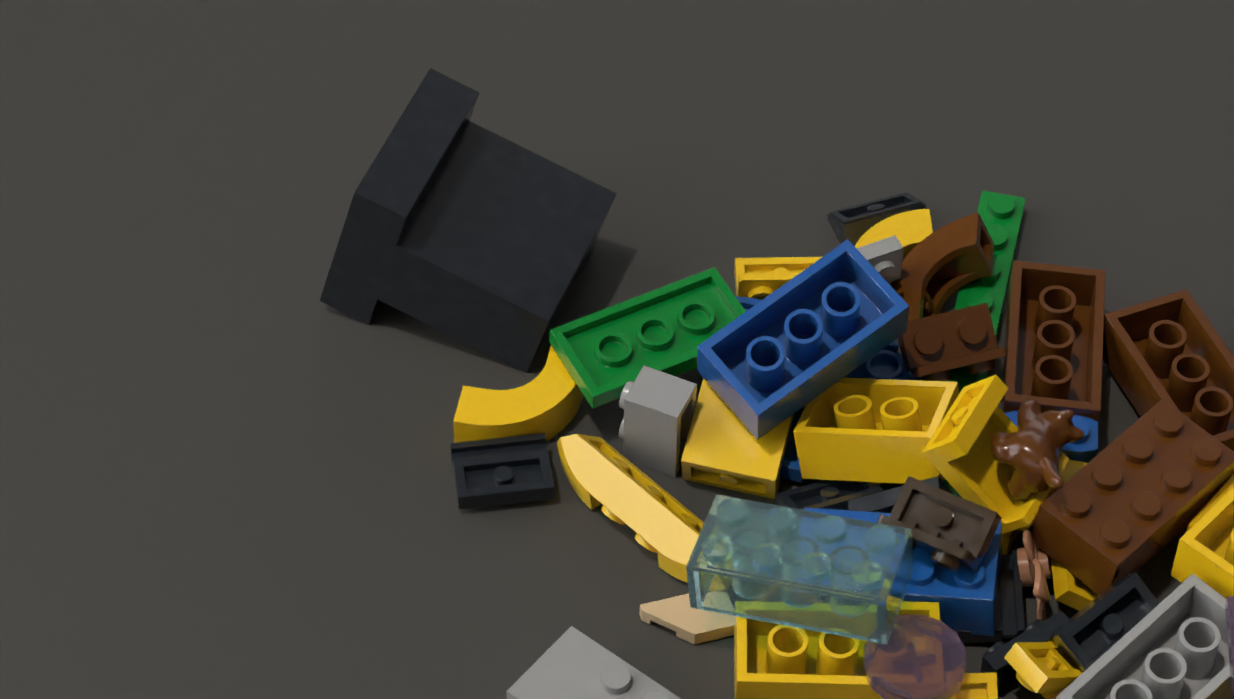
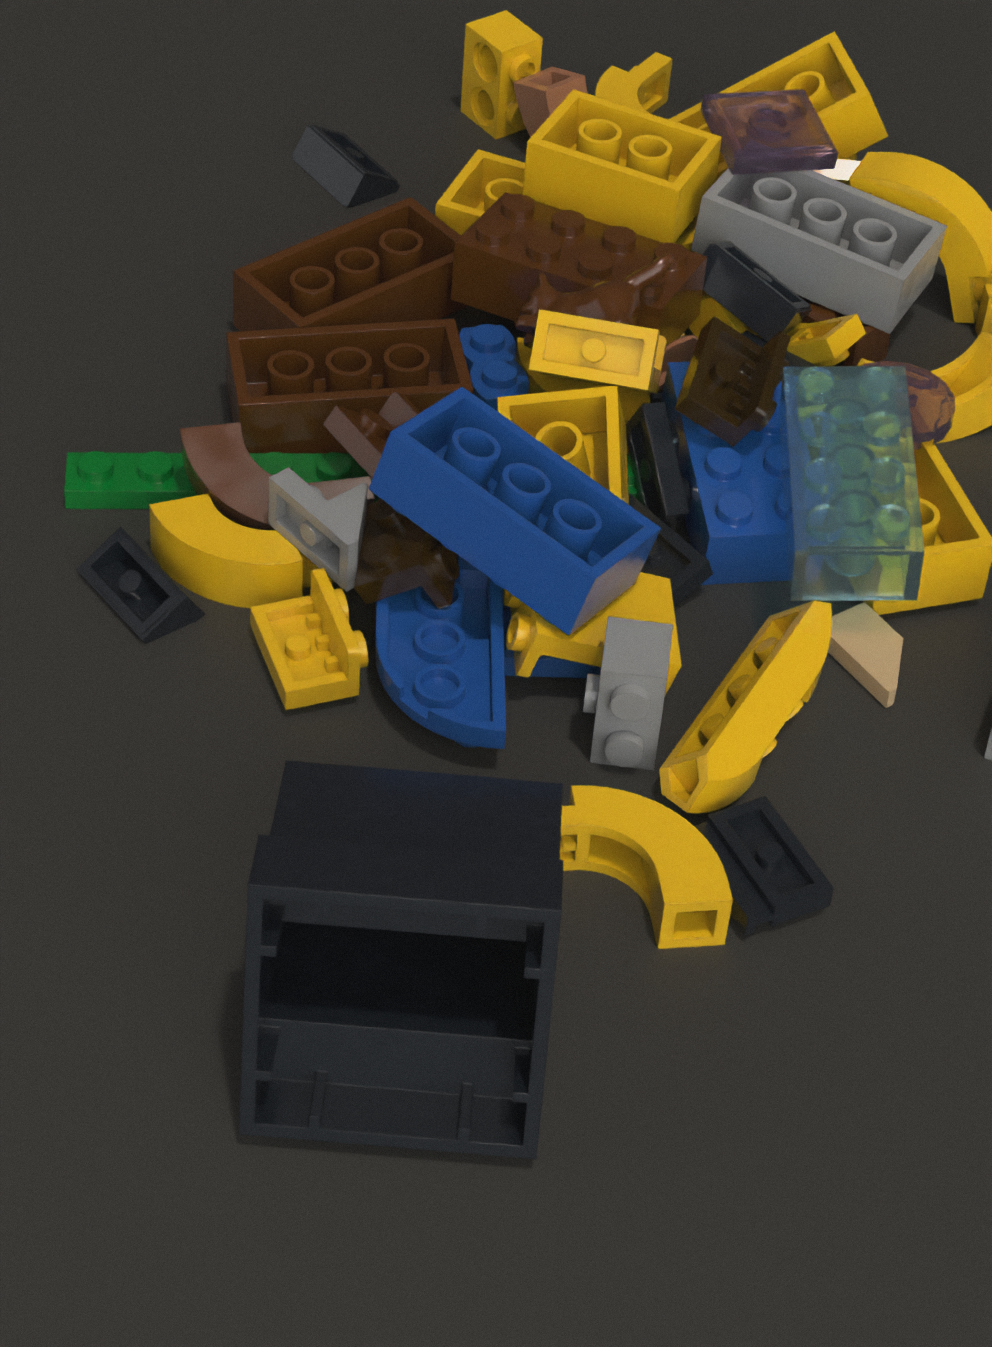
camera: 110 degrees left, 5 degrees down
(648, 330) = (510, 703): green plate -> none

